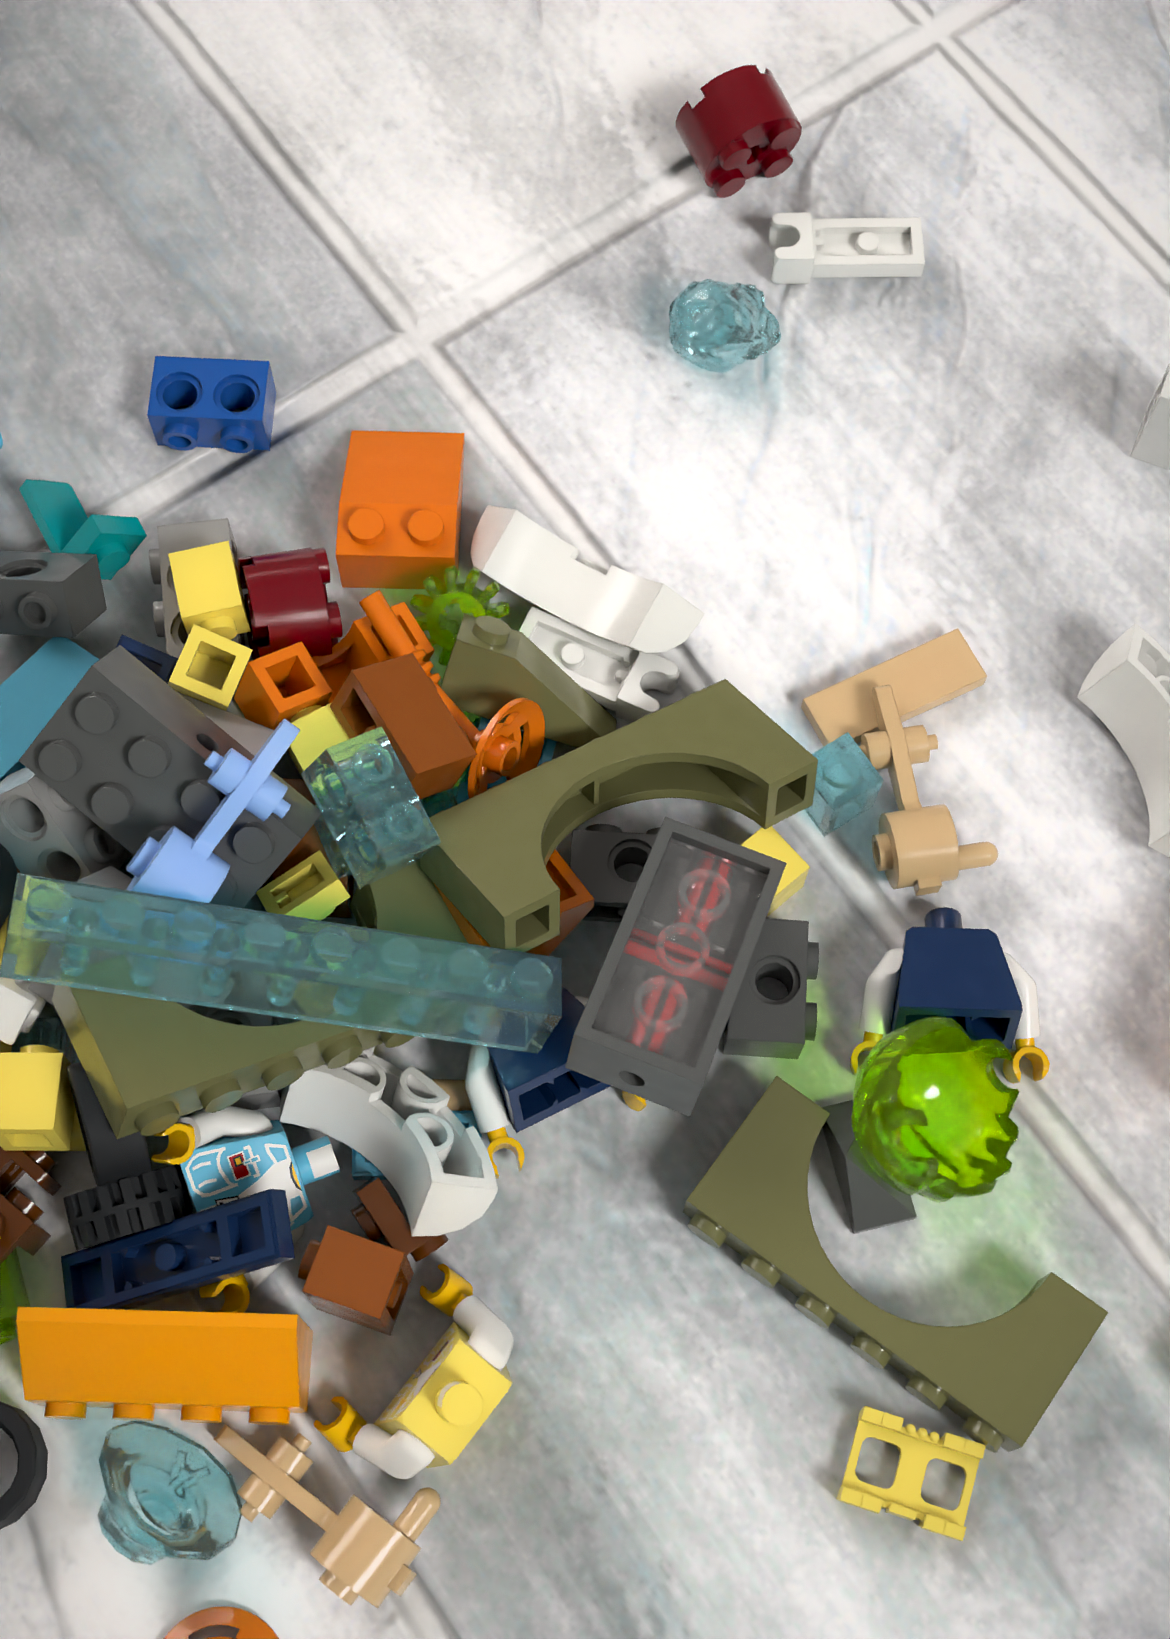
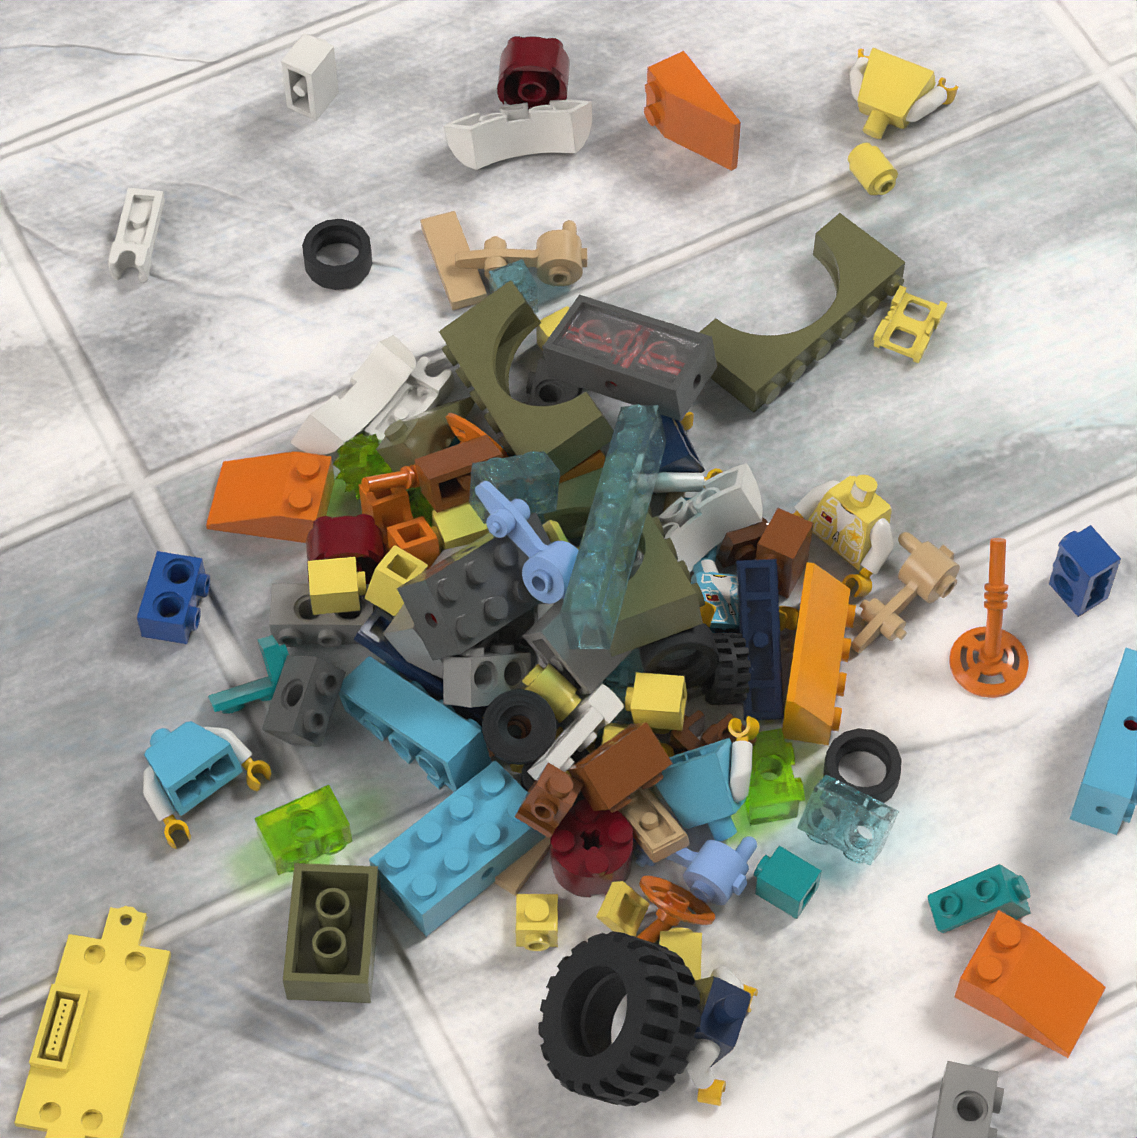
camera: 80 degrees left, 10 degrees down
(165, 1495) = (894, 666): clear light blue hat -> none
(731, 328) = (174, 294): clear light blue hair -> none
(739, 129) = (40, 268): dark red brick -> none
(866, 1196) = (746, 317): dark grey slope -> none
(871, 481) = (337, 232): none -> black tyre
(935, 1111) = (723, 270): clear neon green piece -> none
(958, 977) = (651, 256): dark blue torso -> none

